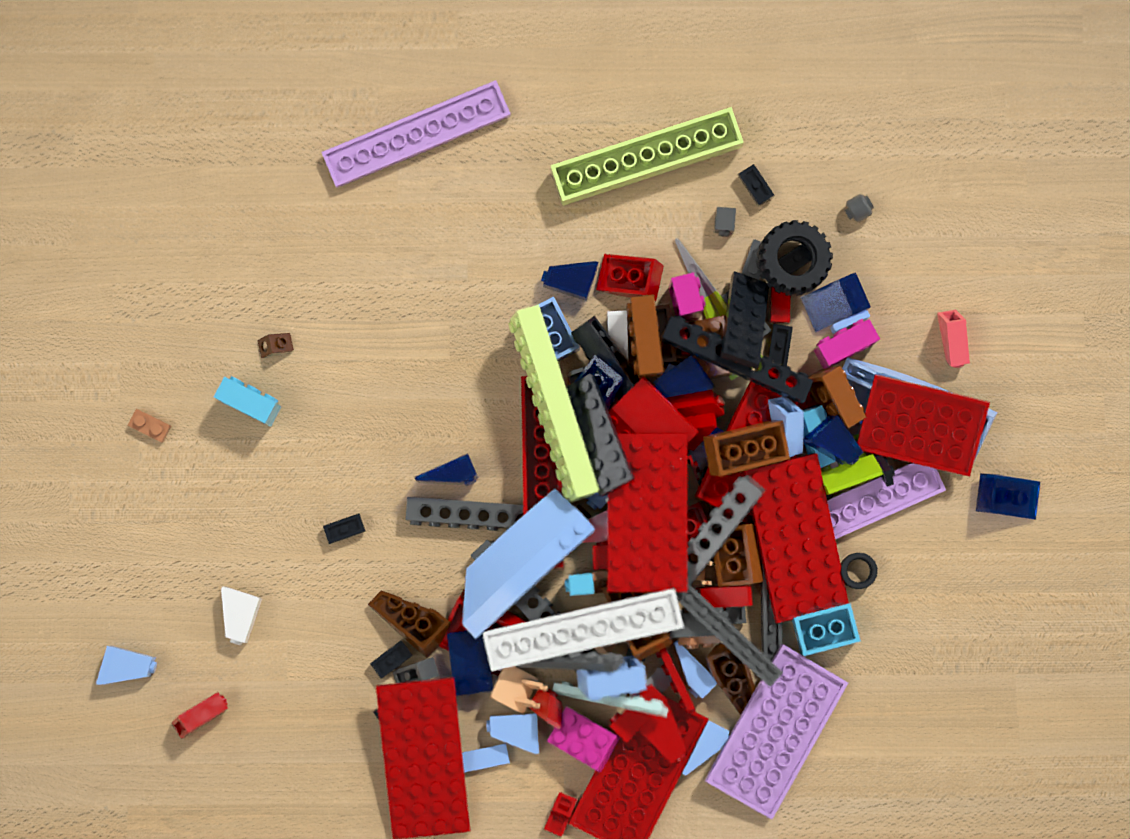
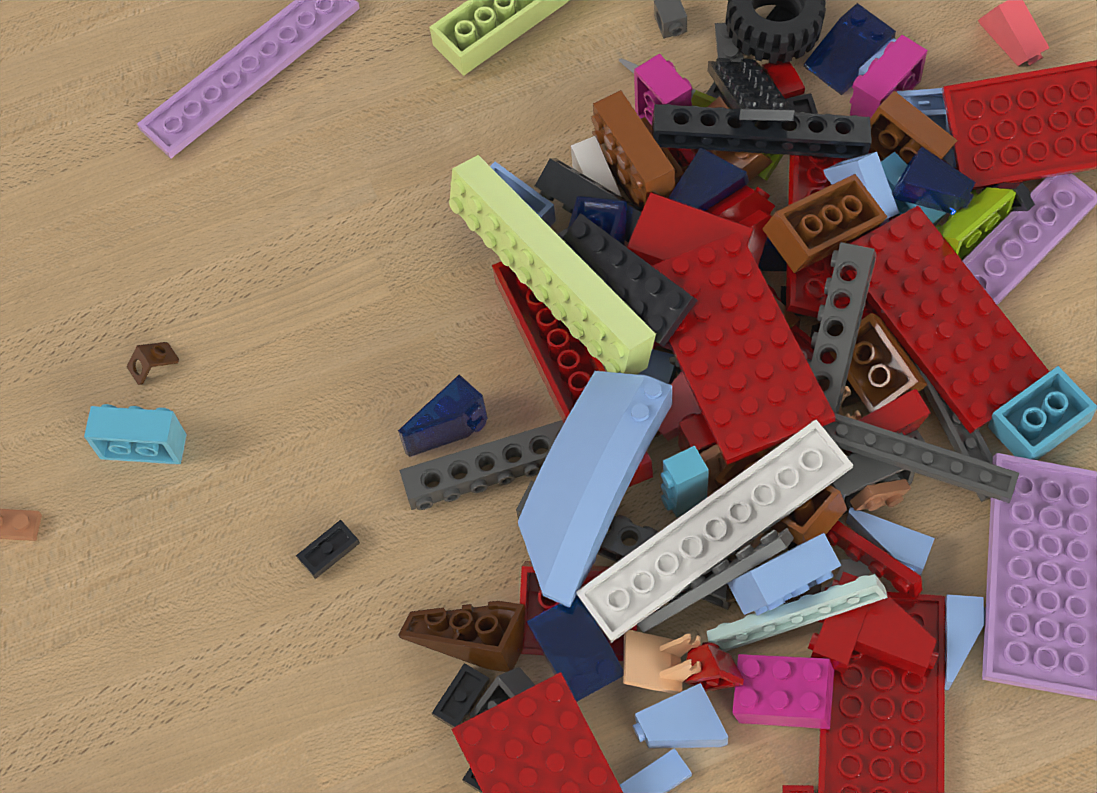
camera: 15 degrees left, 20 degrees down
(239, 614) = (218, 719): white slope -> none
(571, 279) = (510, 143): clear blue slope -> none
(630, 276) = (568, 117): red slope -> none
(731, 676) = (950, 521): reddish brown wedge -> none
(872, 566) = (1054, 317): black tyre -> none

